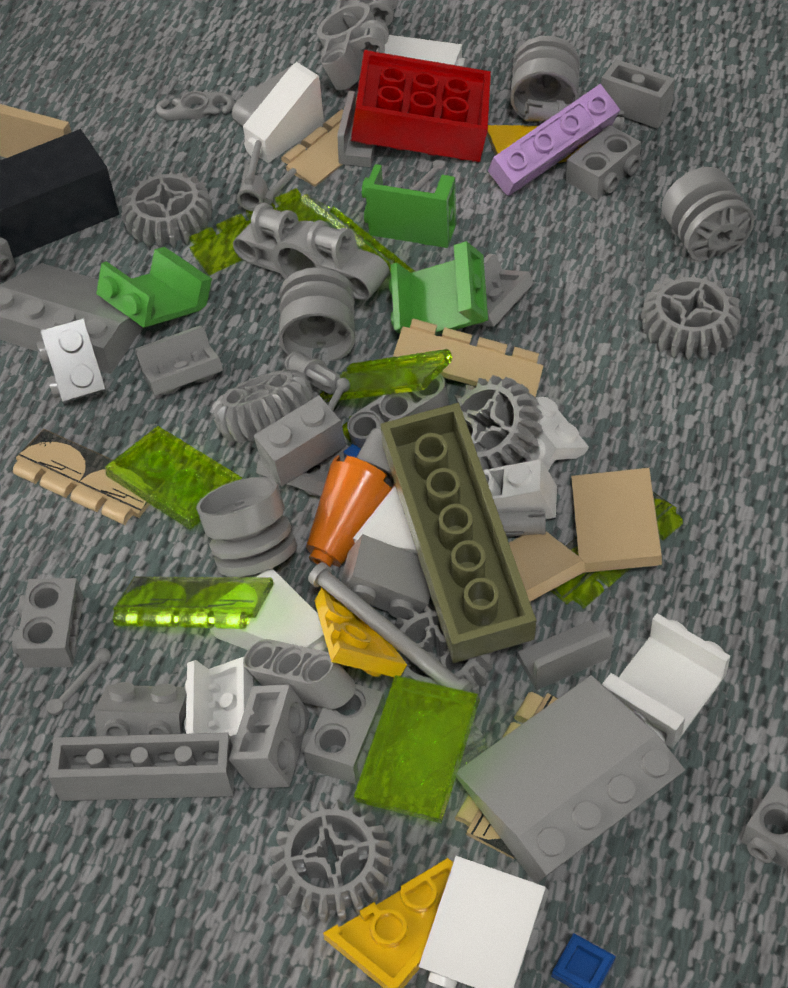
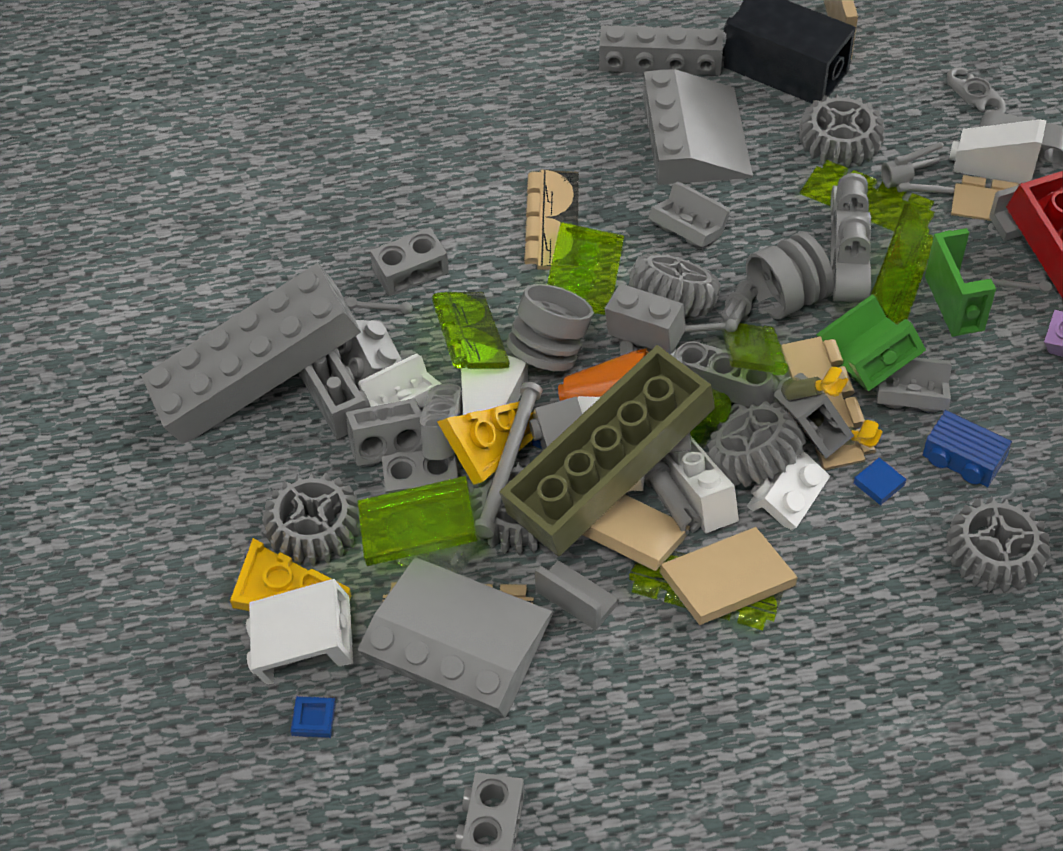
camera: 60 degrees right, 0 degrees up
(71, 361) = (634, 148): bracket -> none
(88, 823) = (250, 354): none -> light grey brick
(166, 293) = (743, 167): bright green panel -> none
(500, 353) = (817, 415): none -> torso
(573, 366) = (879, 481): none -> blue tile
(580, 290) = (966, 449): none -> blue brick
(670, 678) = (588, 676): white panel -> none

